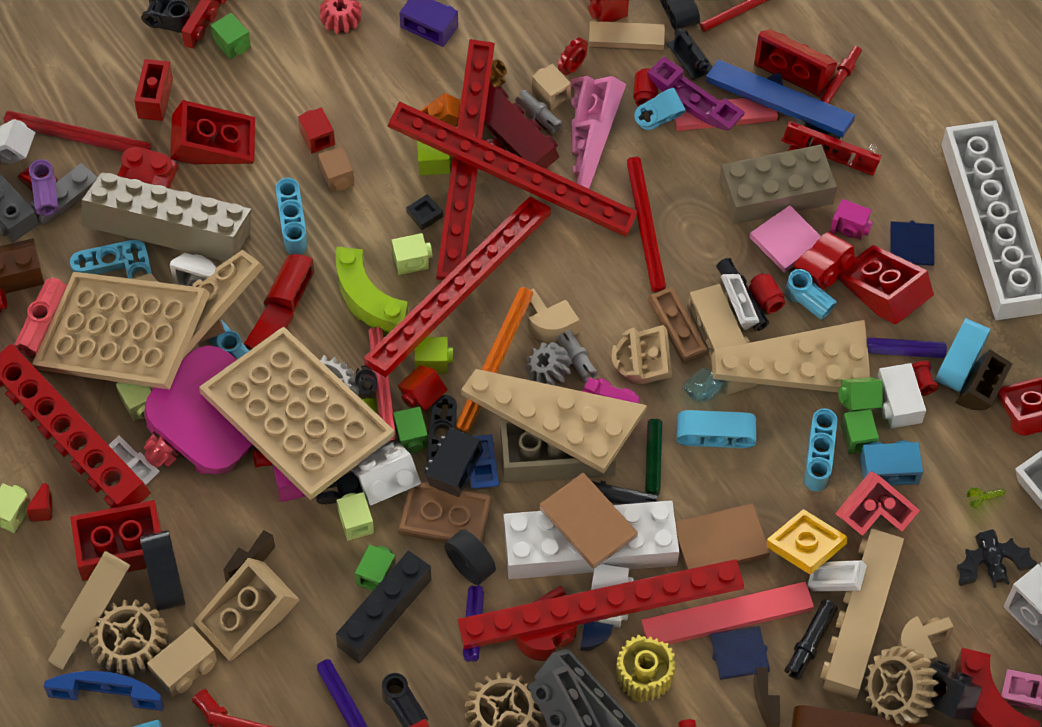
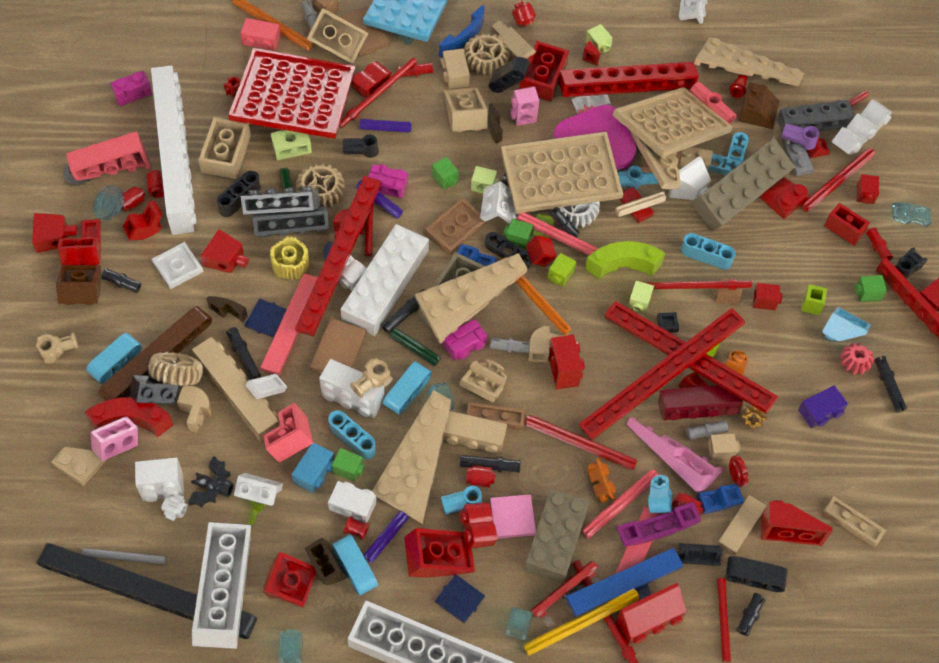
camera: 120 degrees right, 0 degrees up
(21, 627) = (523, 13): none -> red head
(78, 94) = (867, 189): none -> red brick
(85, 39) = (911, 212): none -> clear light blue slope
(160, 50) = (879, 244): none -> red pin
(202, 525) = (524, 106): none -> bright pink brick
(211, 135) = (794, 240): red slope -> none
(269, 315) = (641, 203): none -> tan axle
(291, 282) = (659, 228): red brick -> none
(292, 78) = (814, 299): none -> lime brick
(303, 38) = (844, 326): none -> medium azure slope
(338, 158) = (732, 284): none -> red bar
(383, 606) = (420, 164): black brick -> none
(437, 632) = (393, 181): none -> dark pink brick
(453, 462) = (479, 235): black brick -> none
(456, 287) = (597, 302): red plate -> none
(470, 557) = (413, 206): black tyre -> none
(548, 364) = (511, 322): light grey gear -> none
(565, 274) = (565, 361): none -> red brick
(588, 520) = (390, 270): medium nougat tile -> none
(608, 63) = (720, 499): none -> blue slope
(681, 149) = (618, 505): none -> coral axle
(685, 171) = (605, 487): none -> orange hinge
(740, 300) = (482, 447): white slope -> none
(762, 434) = (370, 379): none -> tan connector
(771, 475) = (336, 387): none -> white brick
(806, 541) = (299, 385): yellow plate -> none
(851, 220) = (499, 565): dark pink brick -> none
(861, 122) = (581, 622): none -> yellow axle
(861, 393) = (368, 476): bright green brick -> none
(899, 169) = (518, 623): none -> clear light blue brick
(959, 503) = (257, 488): none -> white bracket

